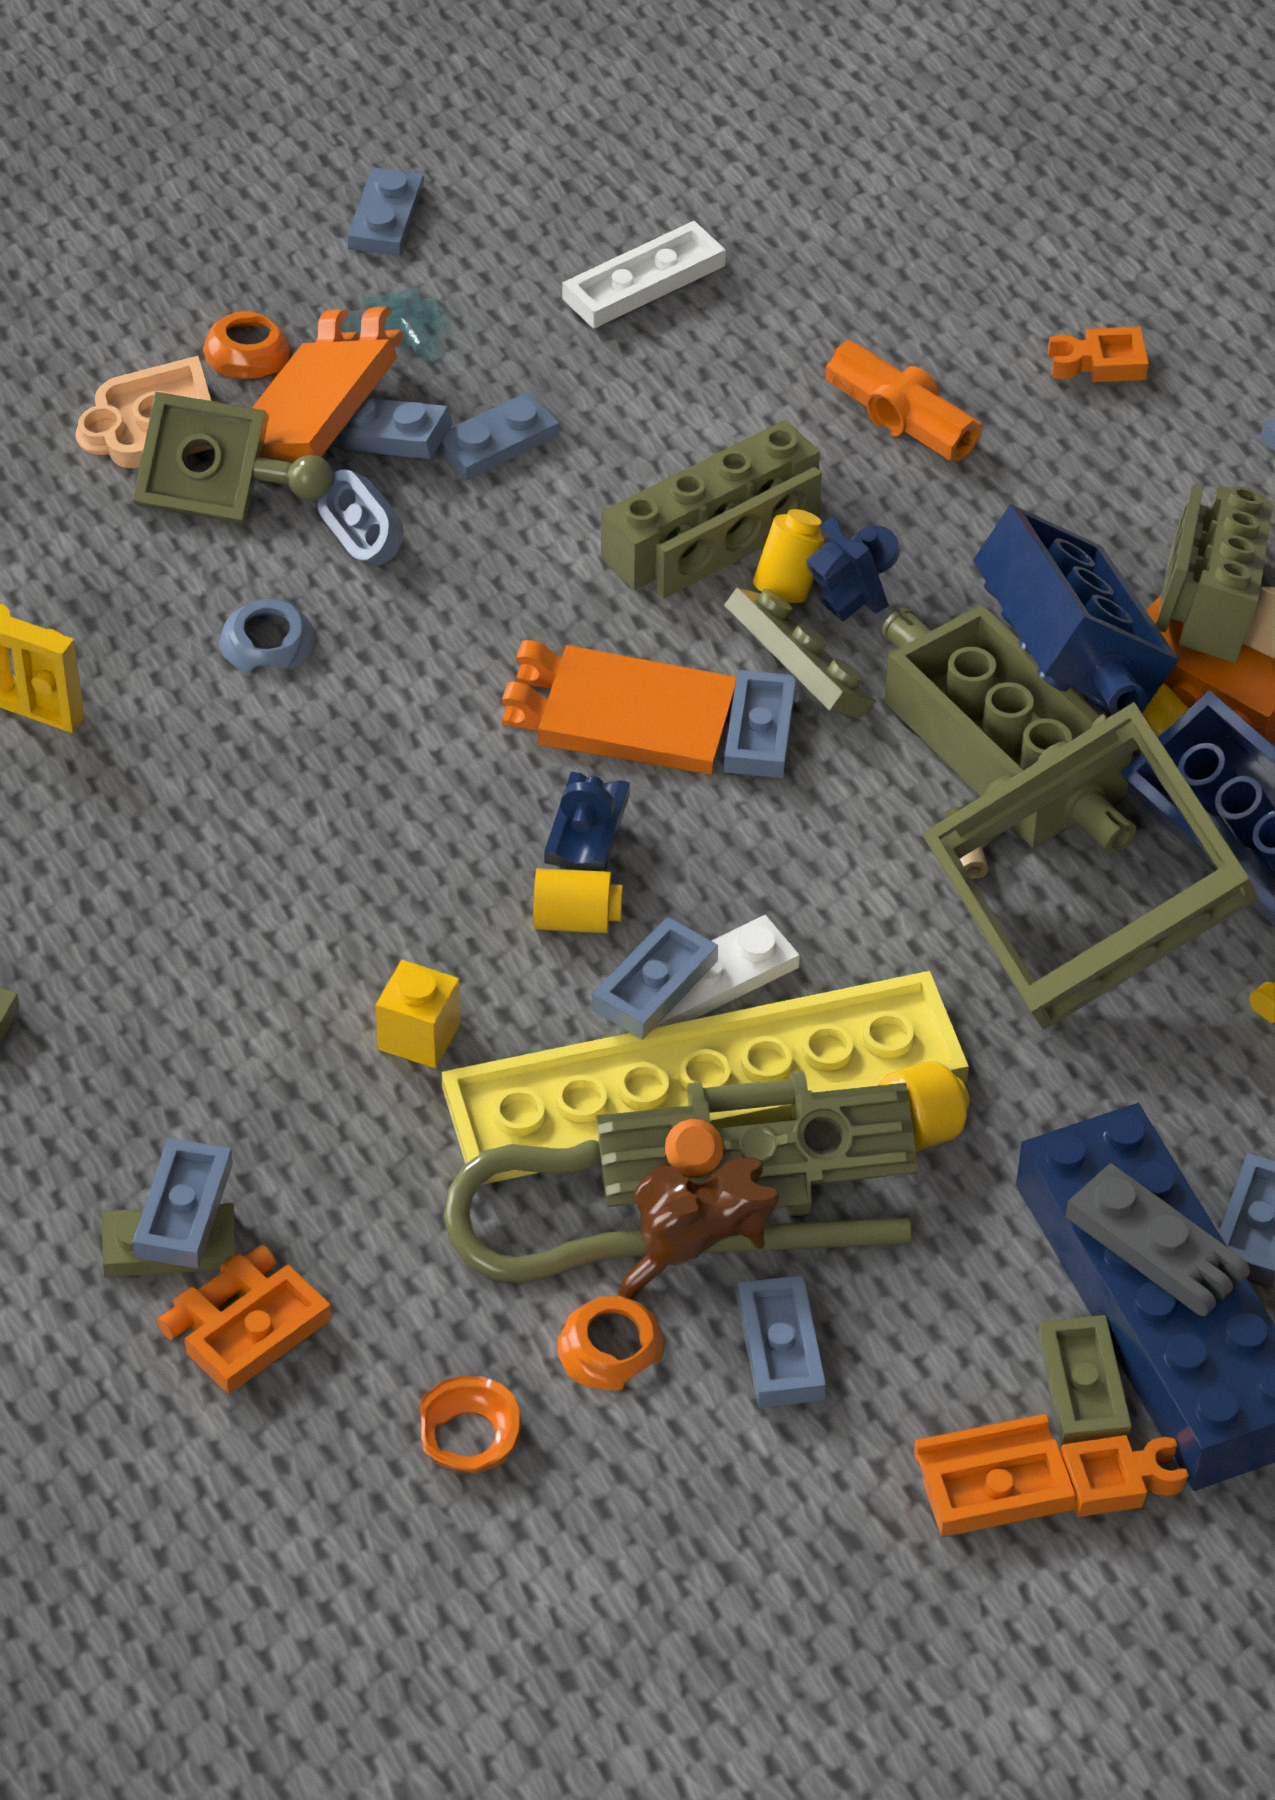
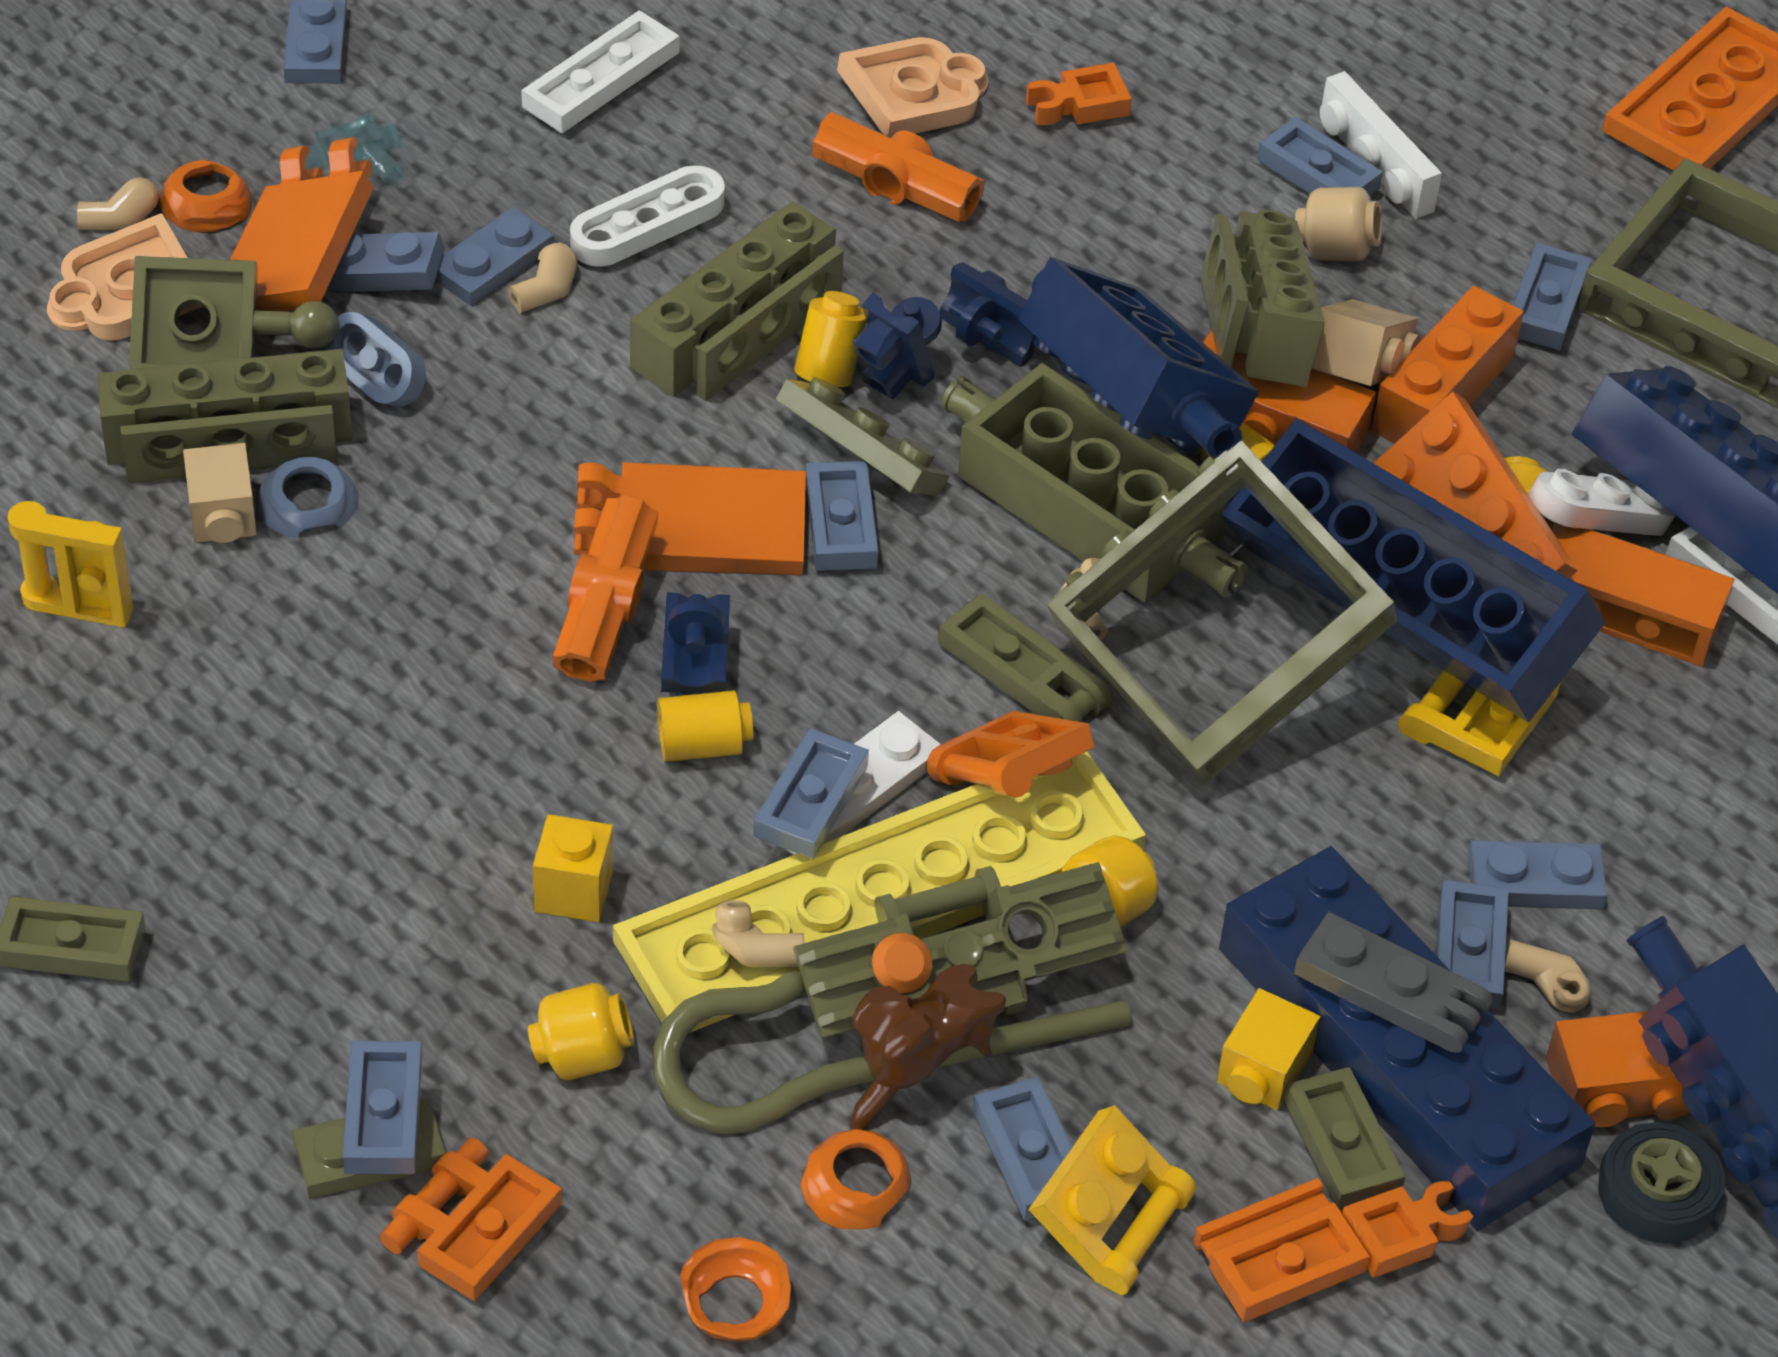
camera: 15 degrees left, 0 degrees up
(171, 345) = (126, 207): none -> tan arm
(185, 621) = (219, 493): none -> tan brick
(208, 549) = (271, 403): none -> olive brick
(387, 1164) = (581, 1031): none -> yellow head
(516, 760) = (605, 588): none -> orange piece
(546, 466) = (552, 279): none -> tan arm
(559, 1105) = (748, 942): none -> tan arm
(651, 416) = (616, 227): none -> white plate
(830, 1383) = (1094, 1188): none -> yellow plate
(856, 967) = (1010, 752): none -> orange plate
(897, 889) = (1022, 662): none -> olive plate
(942, 324) = (914, 84): none -> light nougat plate
(947, 548) = (987, 313): none -> dark blue hips
(1030, 1285) = (1267, 1049): none -> yellow brick

